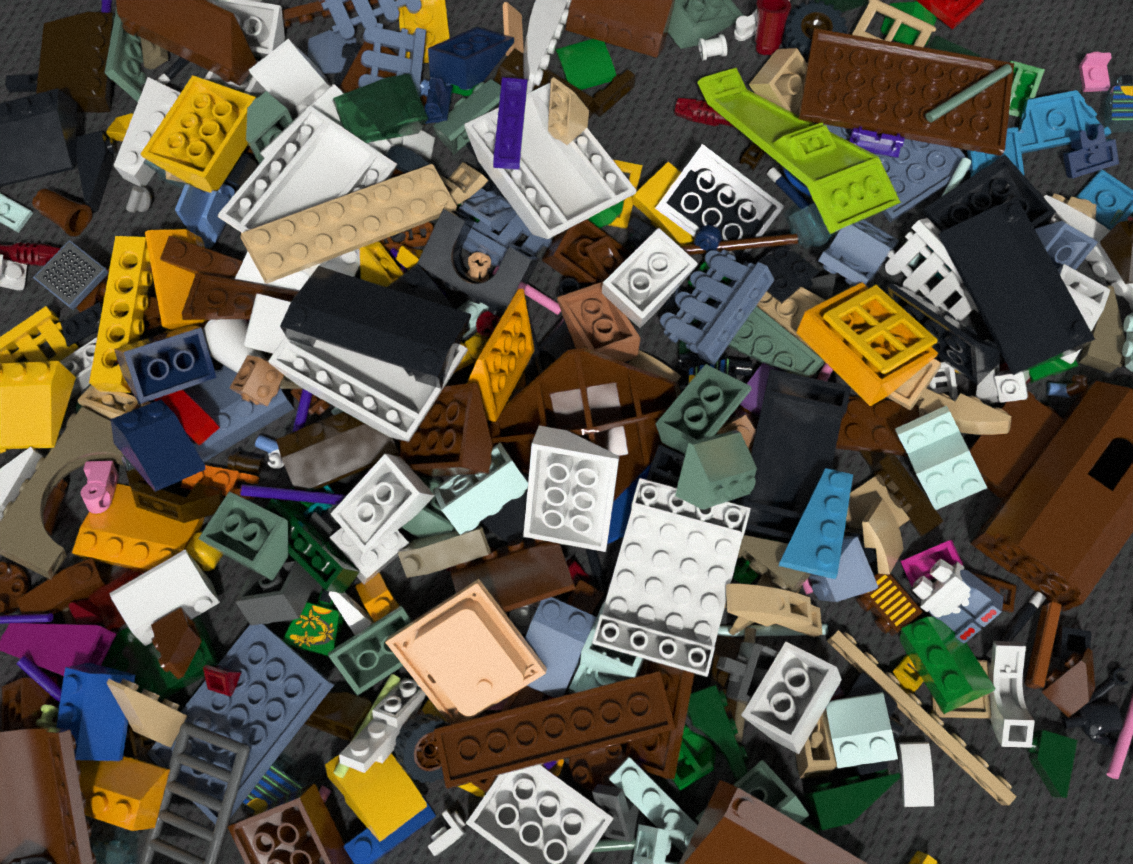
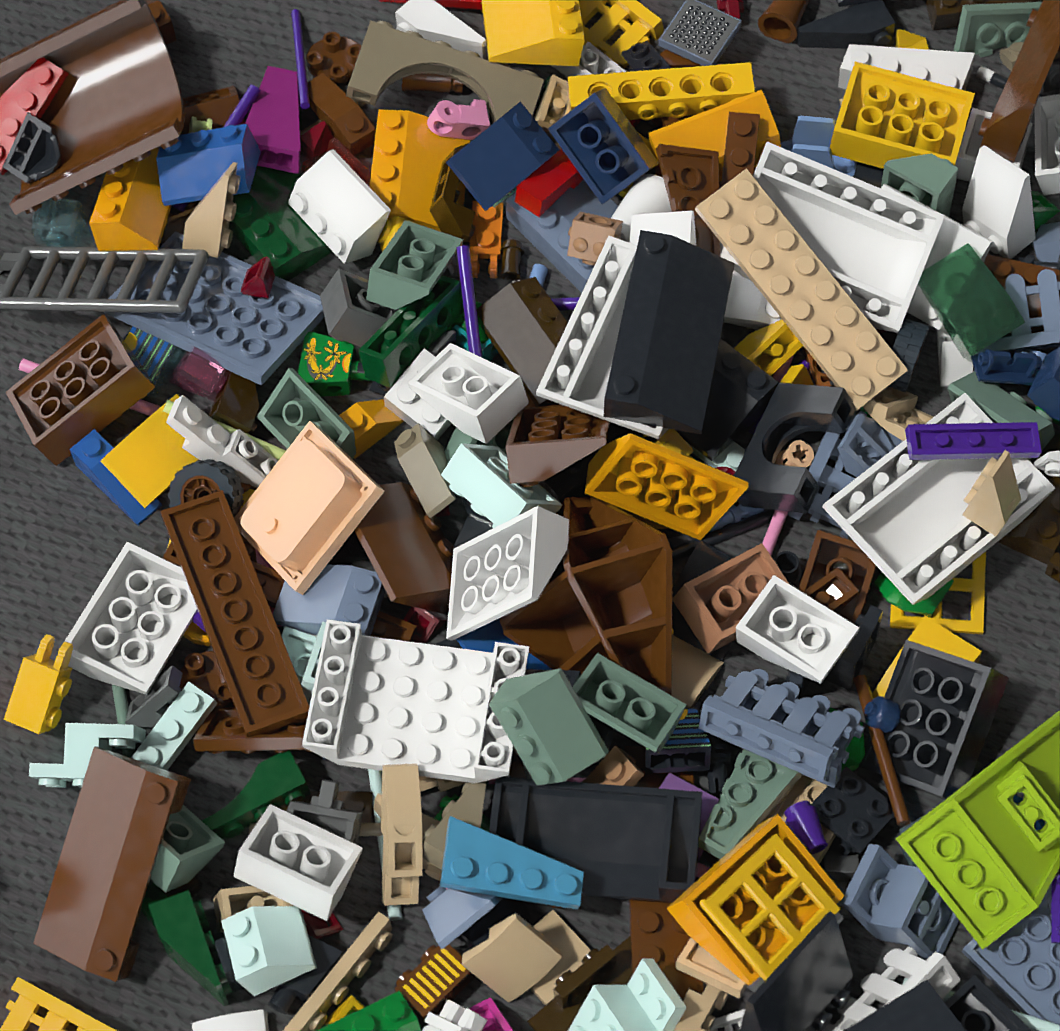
camera: 80 degrees right, 10 degrees down
(139, 200) = (818, 83): light grey plate -> none
(176, 640) = (290, 224): reddish brown slope -> none
(303, 745) = (198, 373): none -> clear pink slope
(353, 613) = (350, 390): white slope -> none
(444, 837) = (115, 535): white bracket -> none
(694, 759) = (222, 773): green slope -> none
(799, 301) = (806, 826): none -> dark purple cone

